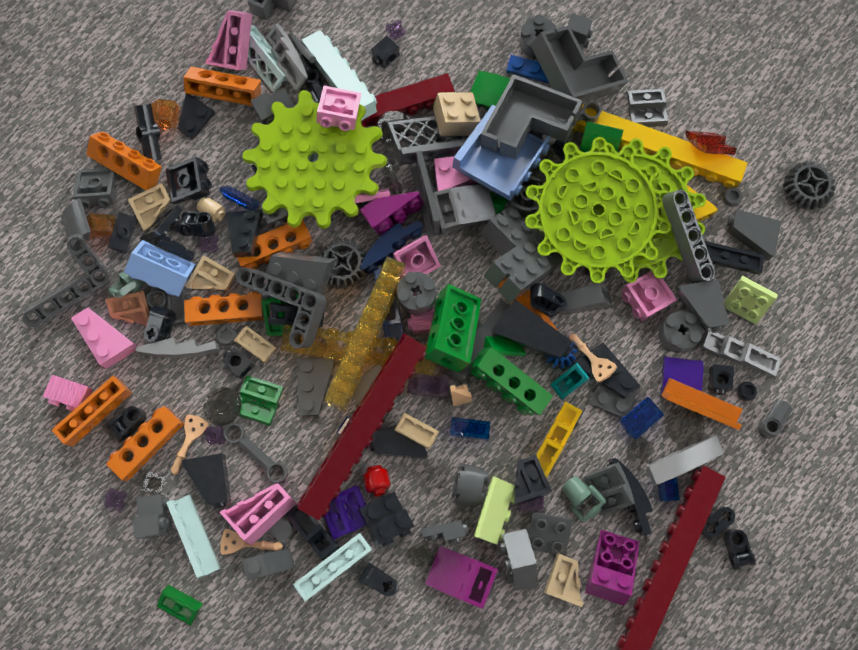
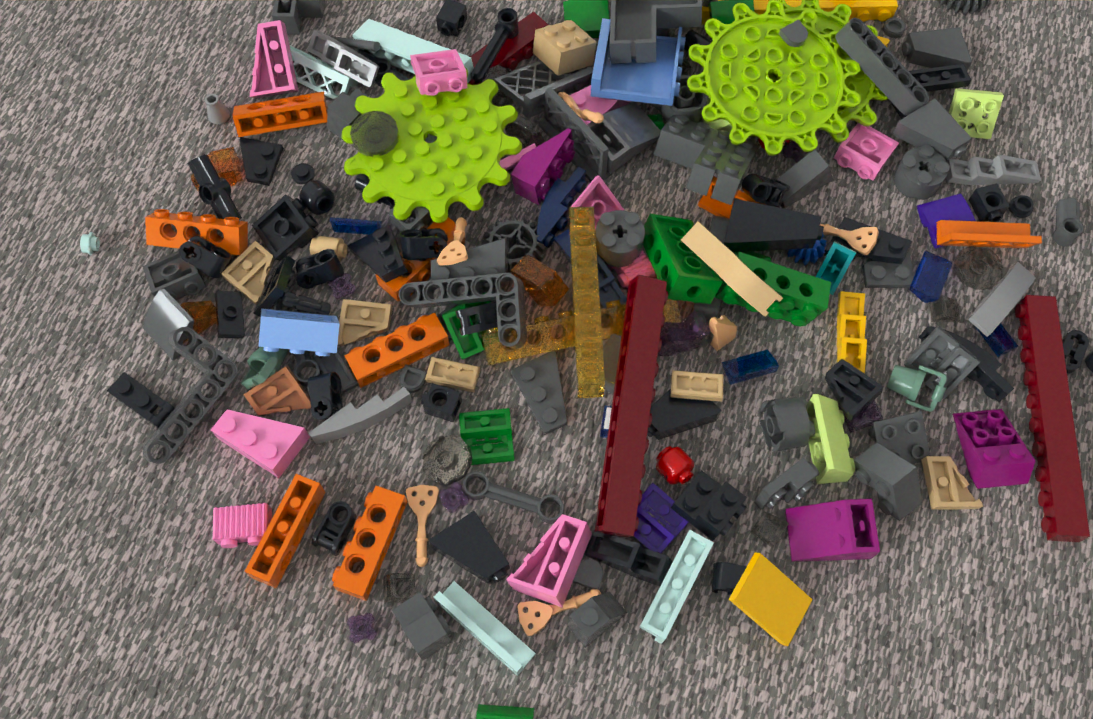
camera: 25 degrees left, 10 degrees down
(38, 272) = (140, 399): none -> black plate
(49, 136) = (89, 243): none -> light aqua plate
(121, 183) = (206, 256): none -> black piece
(178, 63) = (216, 110): none -> light grey cone
(219, 140) = (302, 173): none -> black plate
(220, 165) = (317, 197): none -> black head
(271, 139) = (374, 133): none -> clear smoke tile
(272, 238) = (421, 244): none -> black piece
(289, 258) = (455, 250): none -> light nougat piece
(346, 300) = (540, 281): none -> clear orange slope
(391, 606) = (770, 599): none -> yellow tile
(412, 85) = (505, 29): none -> black axle
(433, 171) = (585, 114): none -> light nougat piece
(477, 357) = (730, 268): none -> tan piece
(630, 181) = (794, 34): none -> dark grey tile

